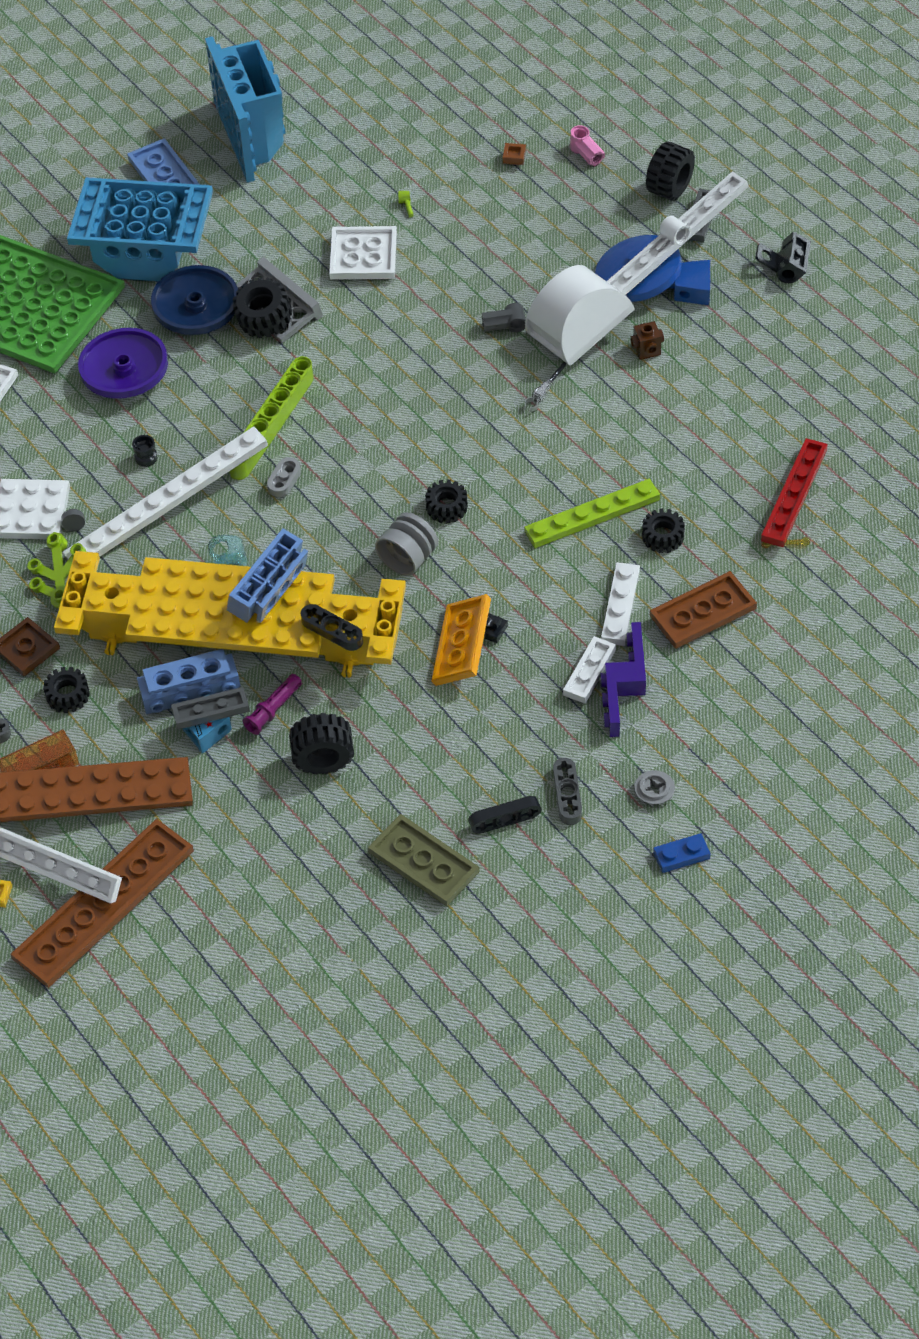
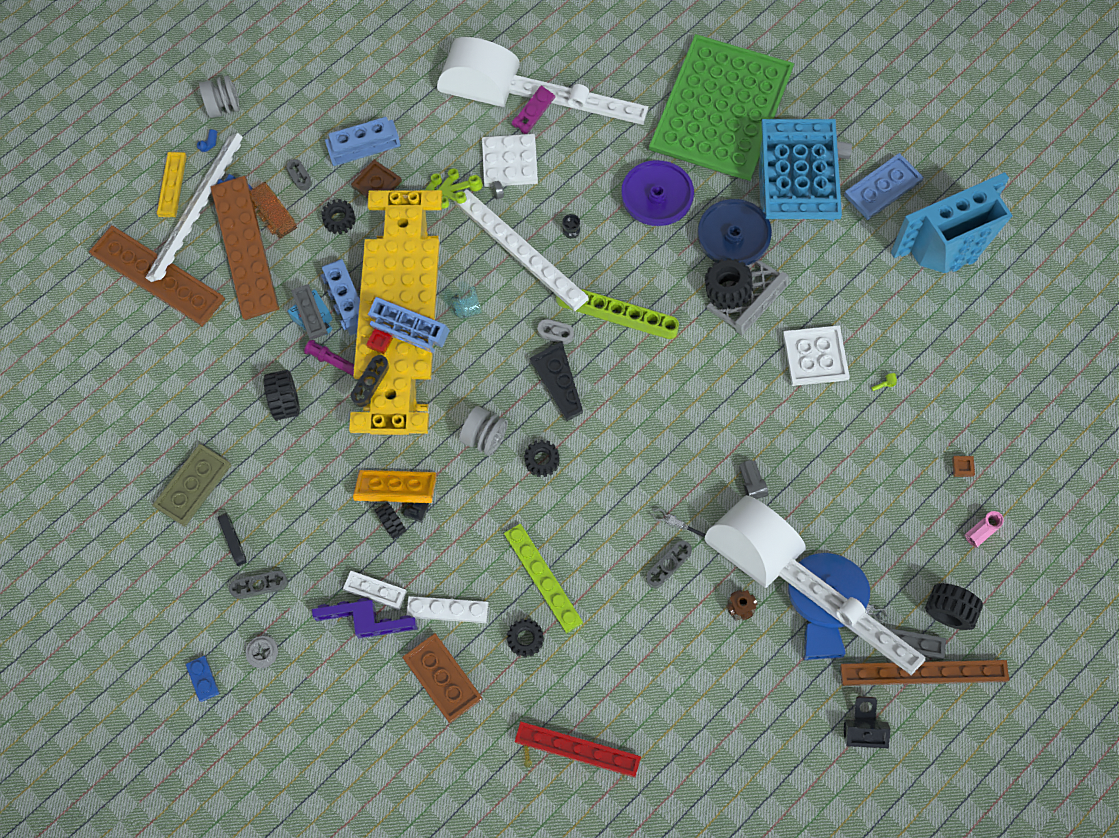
camera: 85 degrees right, 15 degrees up
(280, 613) = (379, 341): none -> red plate
(341, 482) = (557, 377): none -> black wing
(506, 642) = (390, 520): none -> black tyre
(594, 410) = (675, 550): none -> dark grey beam
(733, 218) = (928, 673): none -> dark orange plate

